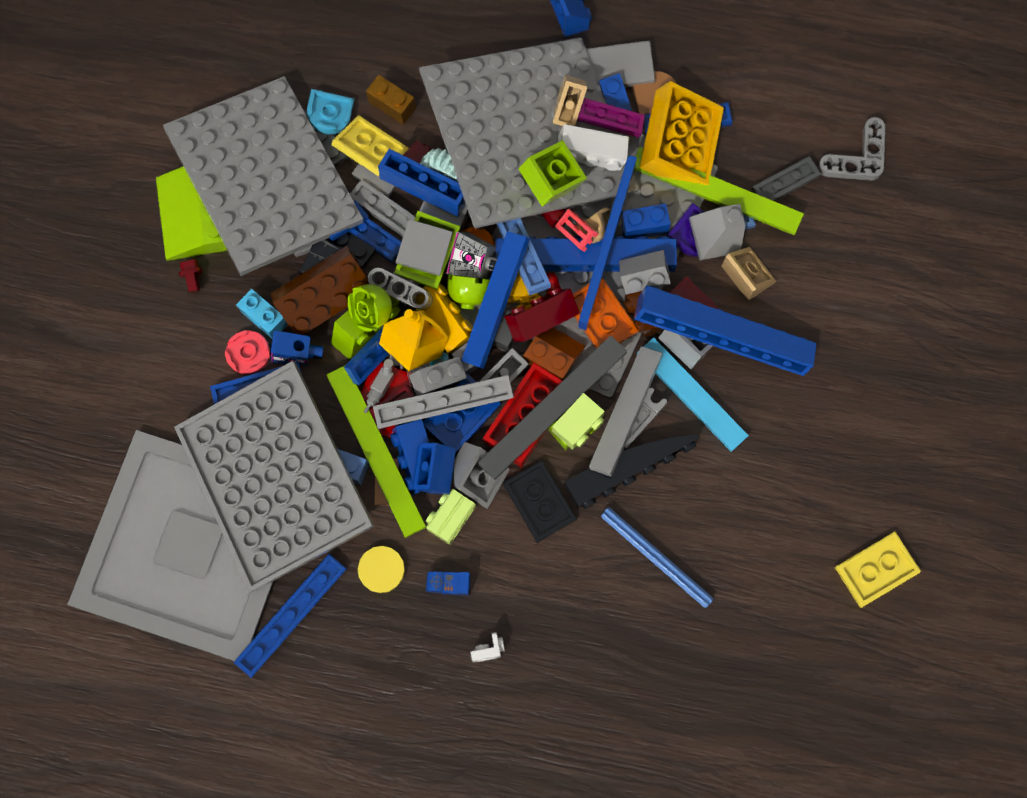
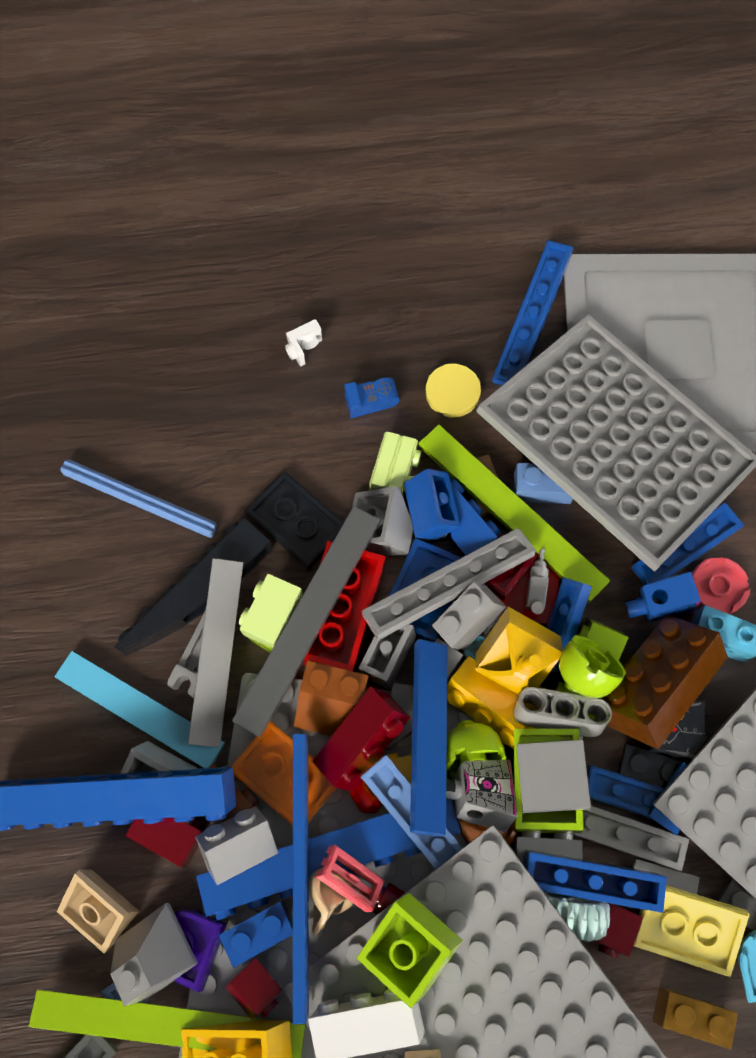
camera: 160 degrees right, 5 degrees down
(656, 190) = (254, 990): none -> dark red brick

